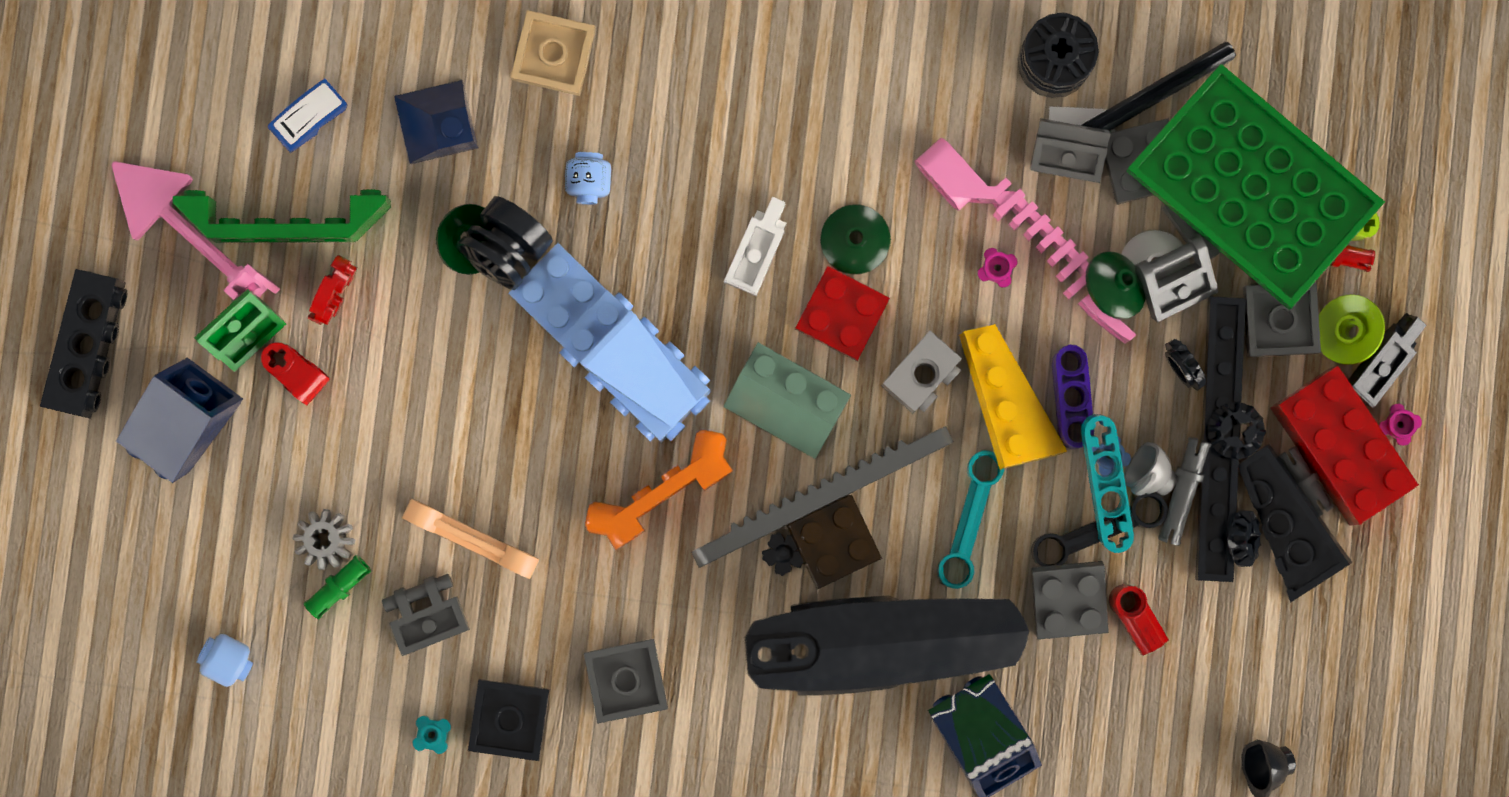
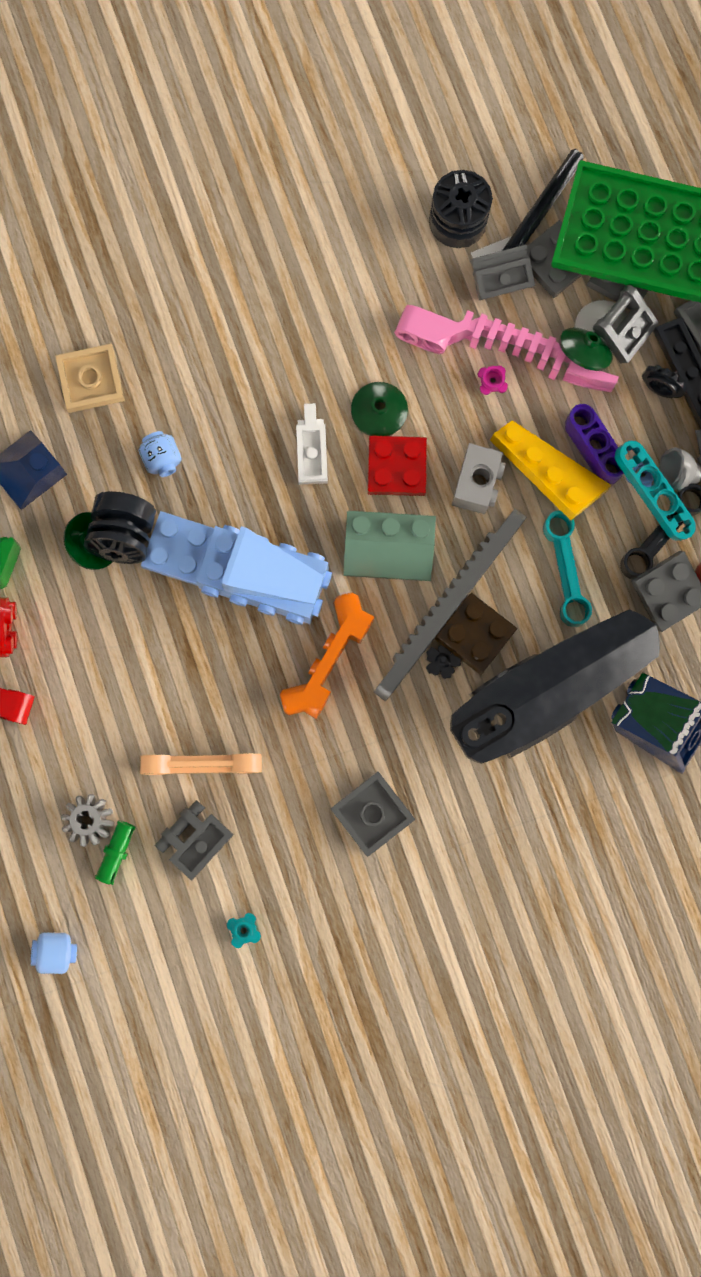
camera: 35 degrees left, 5 degrees down
(509, 720) = (298, 889): black plate -> none

